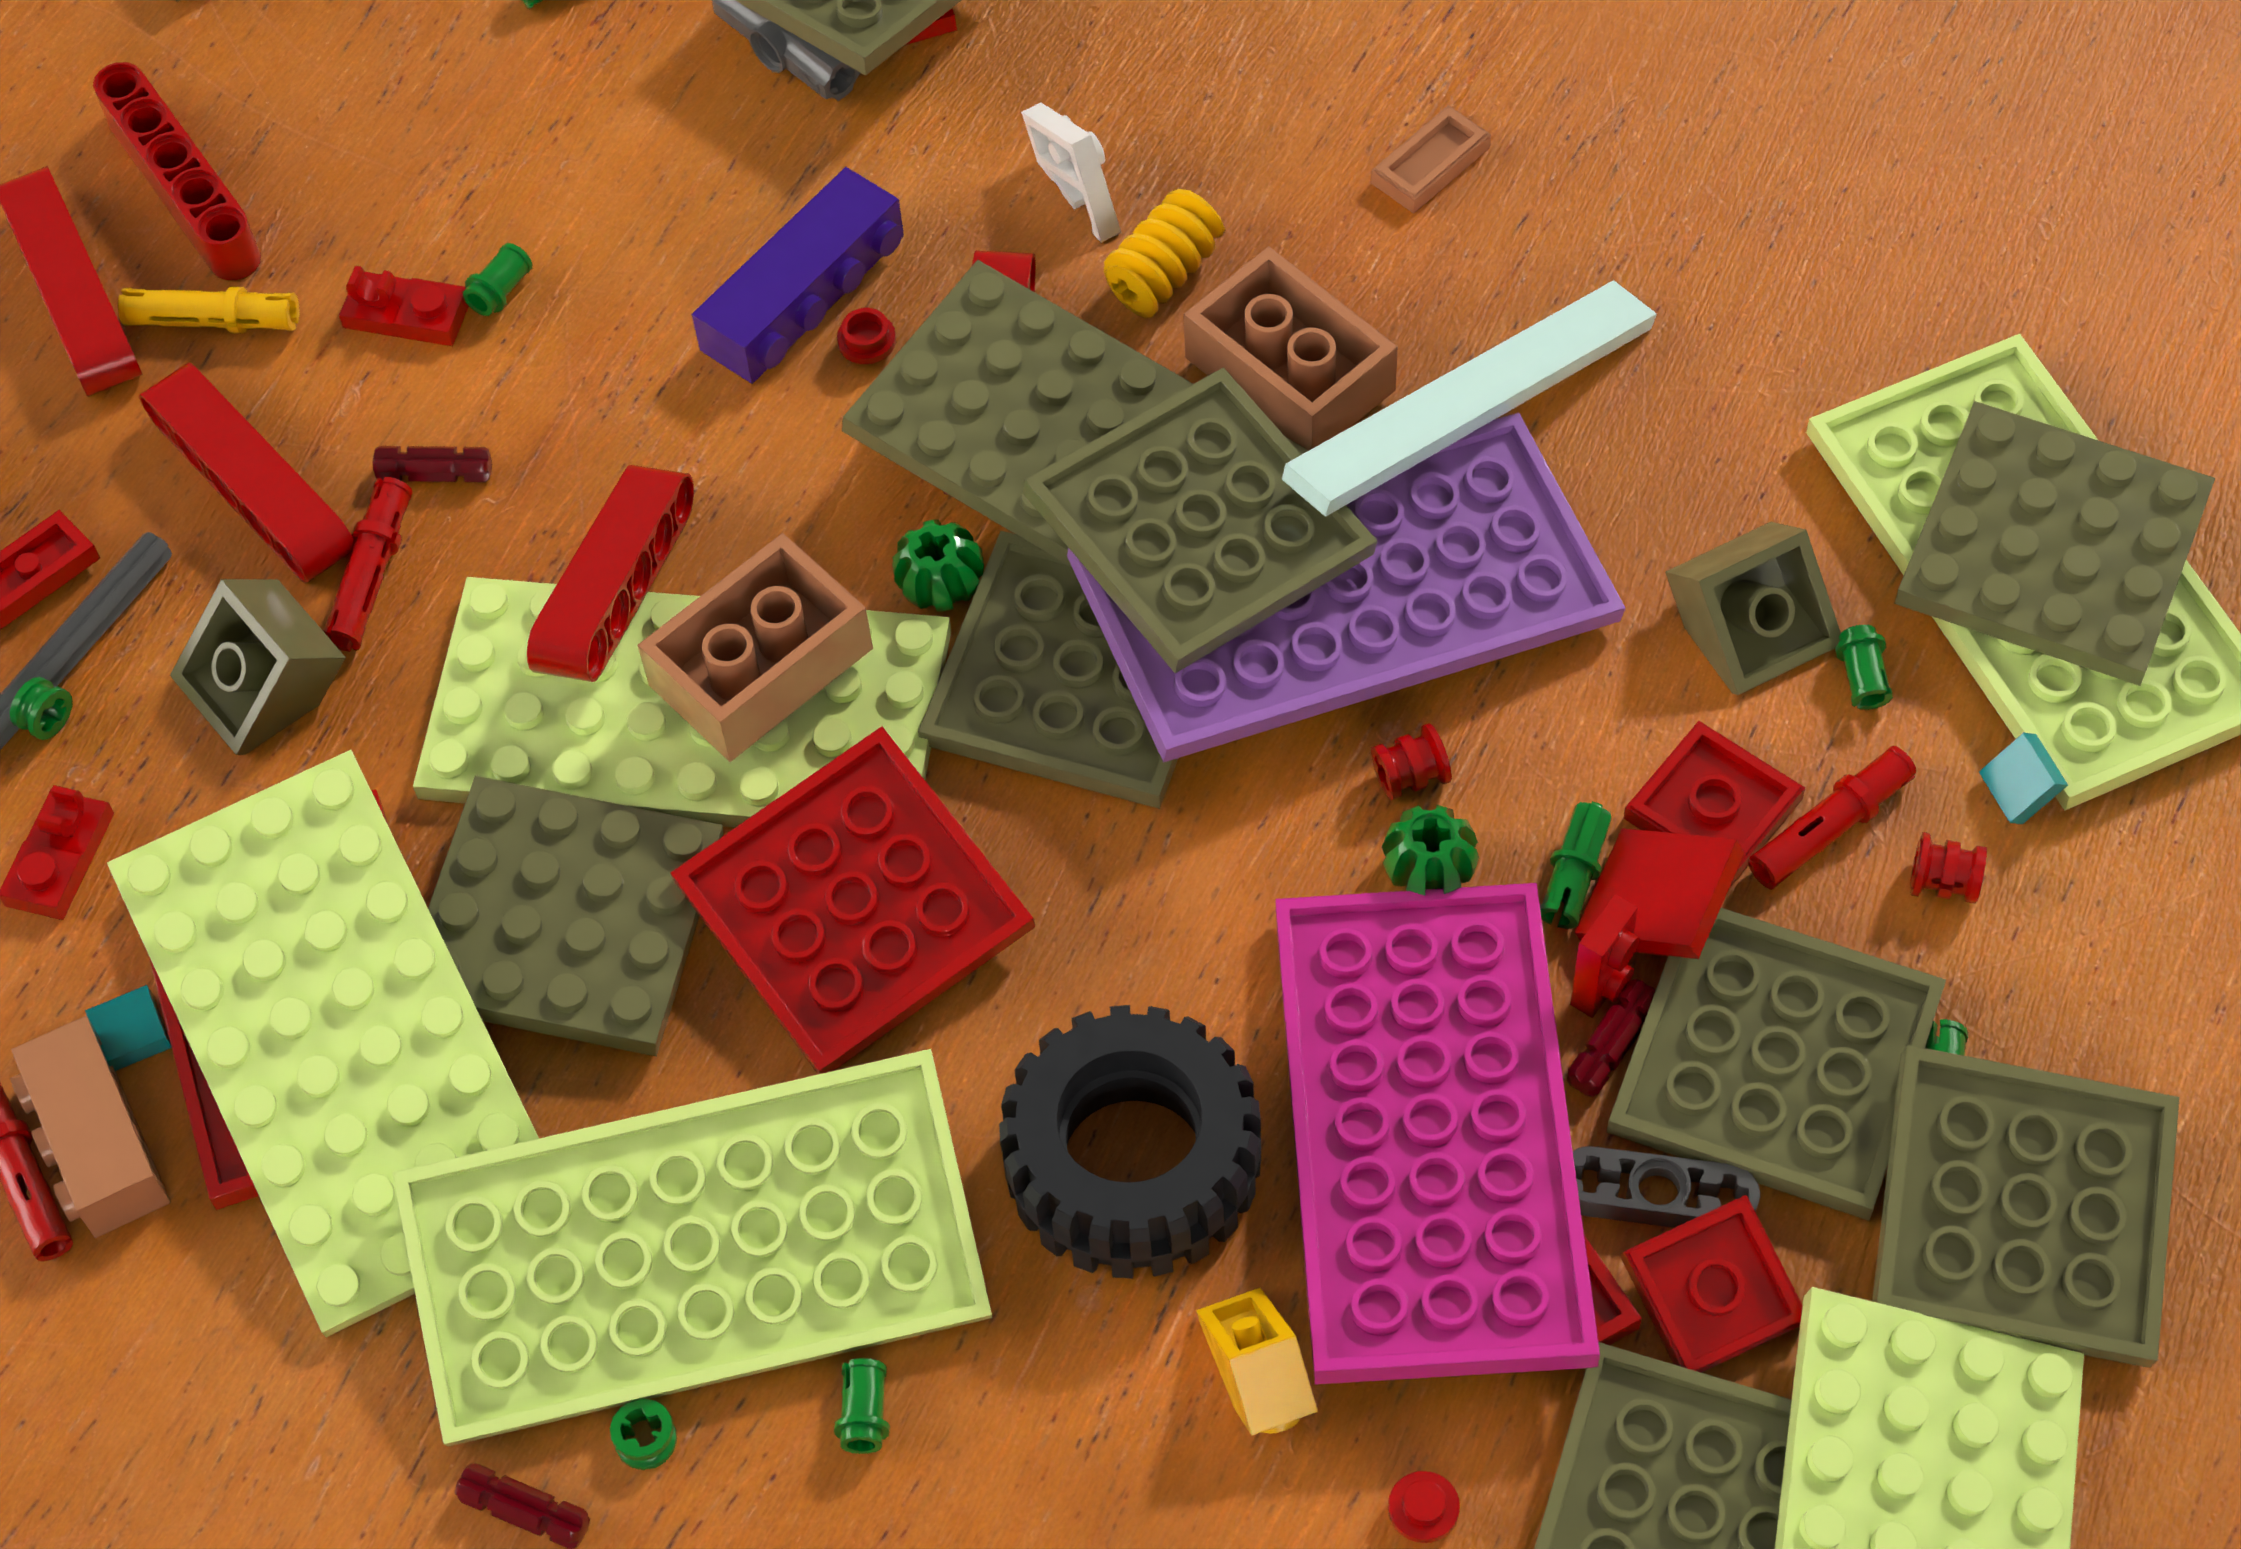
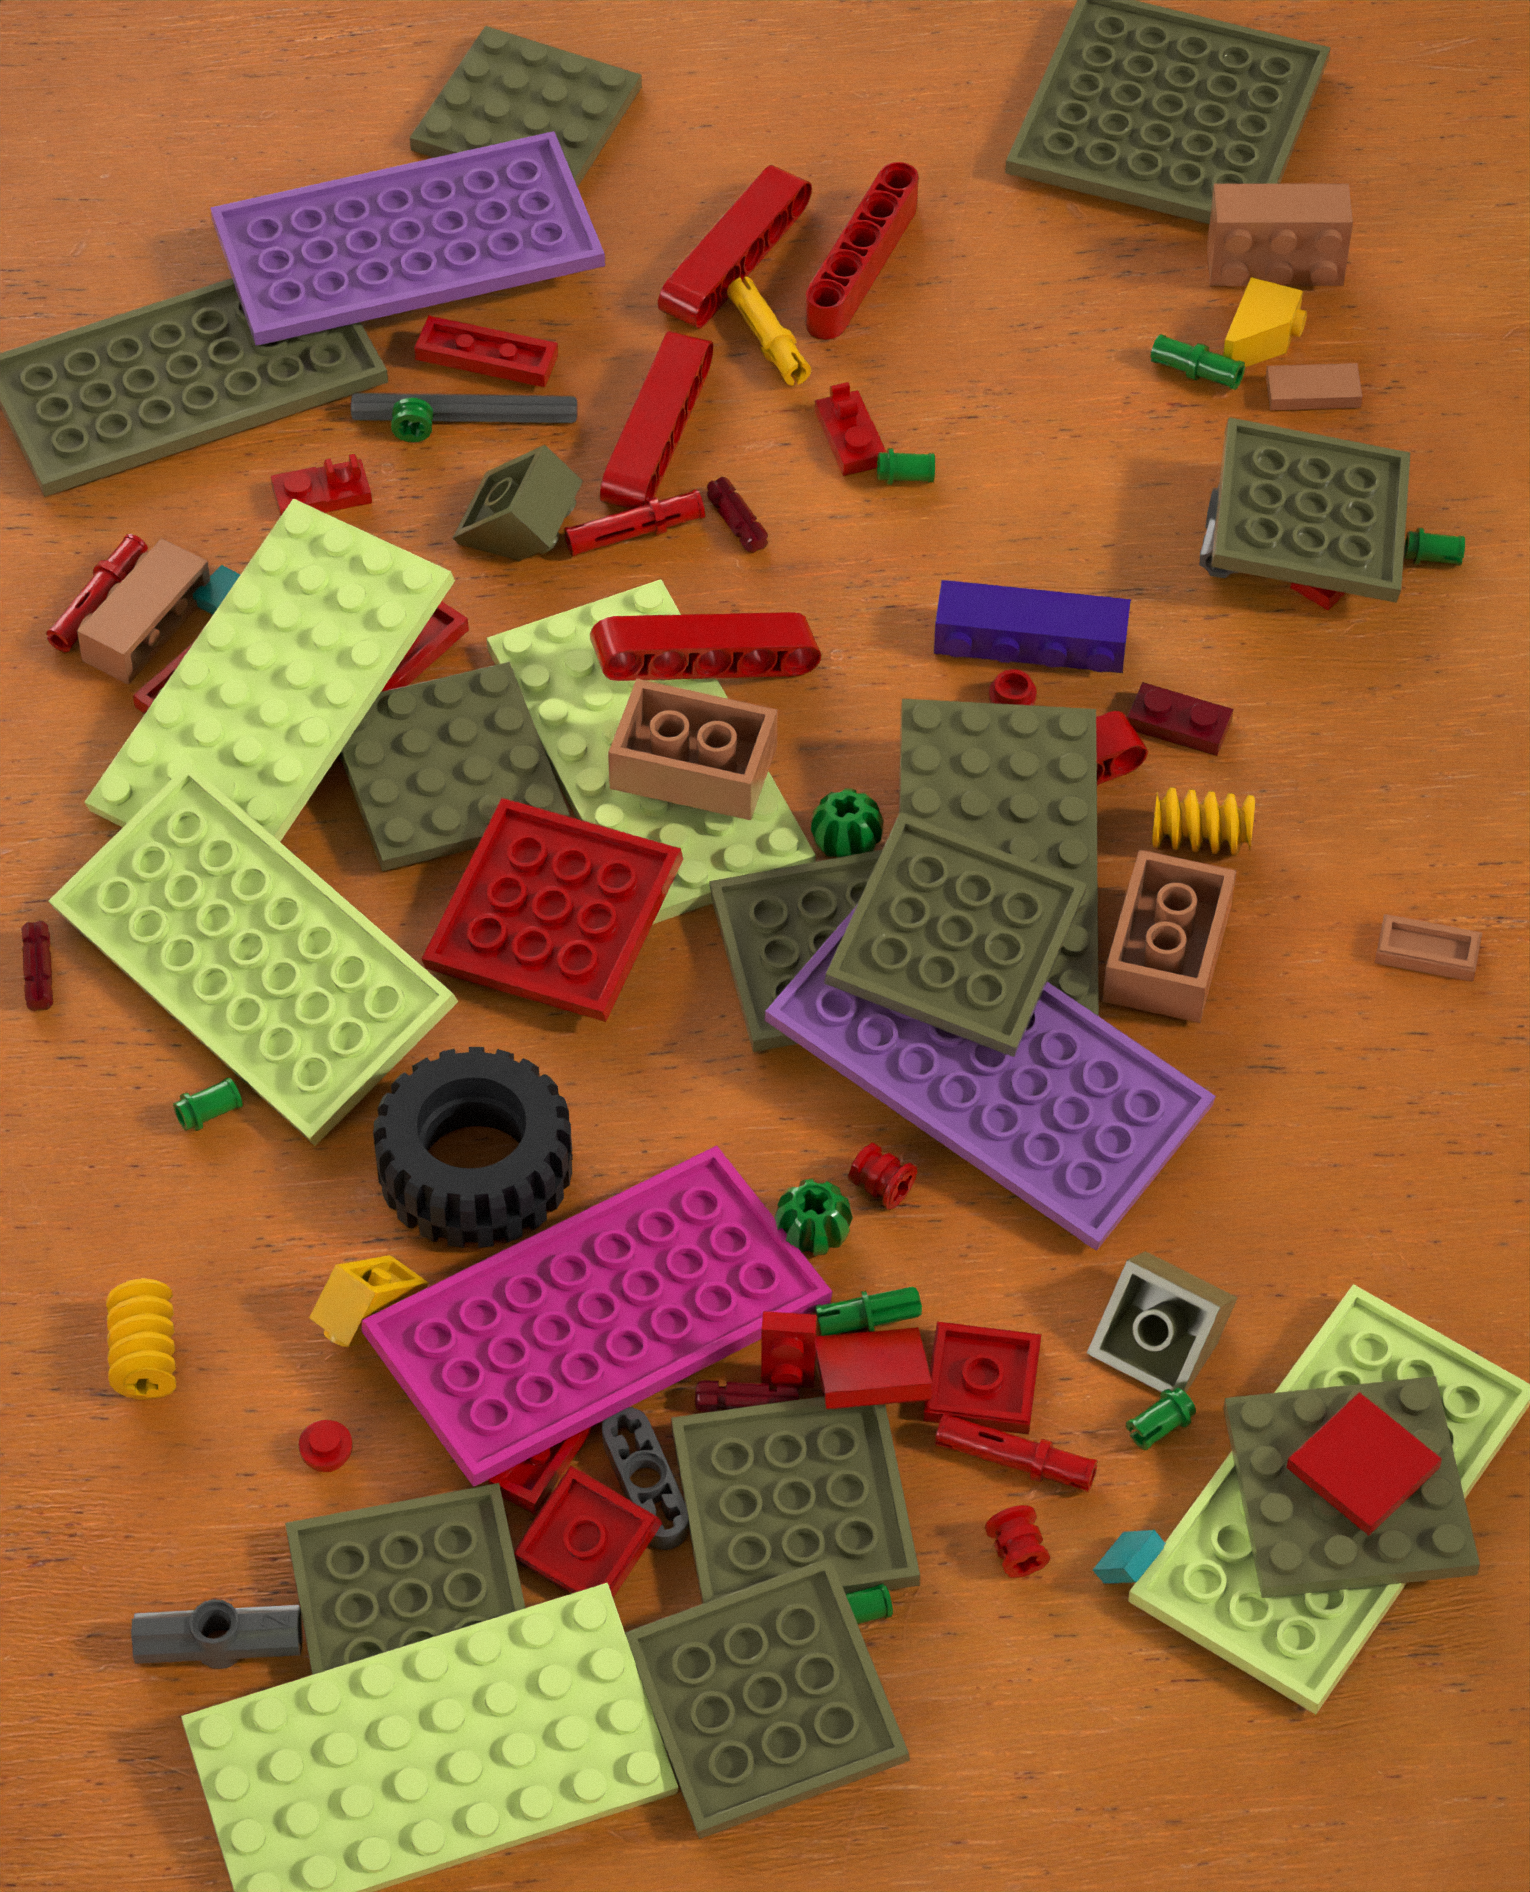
camera: 55 degrees right, 5 degrees down
(630, 1450) = (121, 1015): green bush -> none
(1005, 213) = (1180, 718): none -> dark red plate
(1074, 163) = (1238, 731): white wing -> none
(1467, 398) = (1200, 1055): light aqua tile -> none
(2061, 506) = (1364, 1463): none -> red tile

